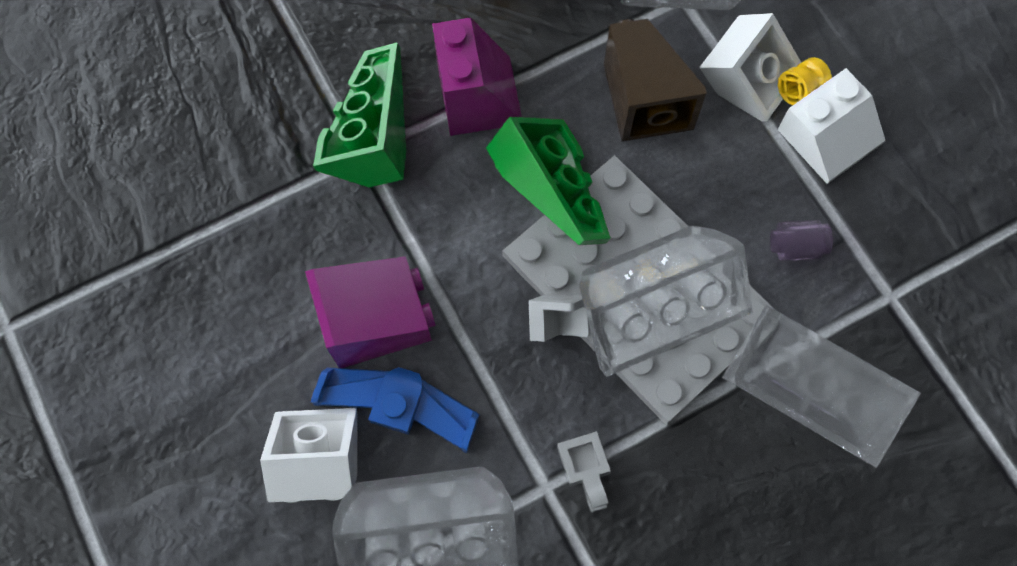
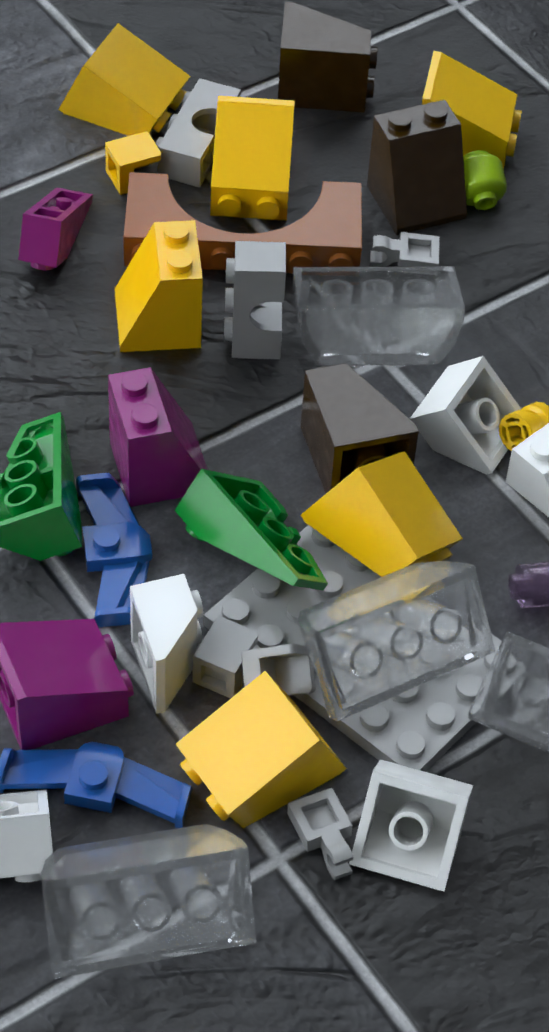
camera: 10 degrees left, 20 degrees down
(434, 179) = (113, 546): none -> blue plate
(468, 275) = (165, 634): none -> white slope
(513, 292) = (219, 659): none -> light grey panel
(536, 394) = (257, 753): none -> yellow slope
(663, 470) = (411, 824): none -> white slope
(669, 175) = (385, 517): none -> yellow slope

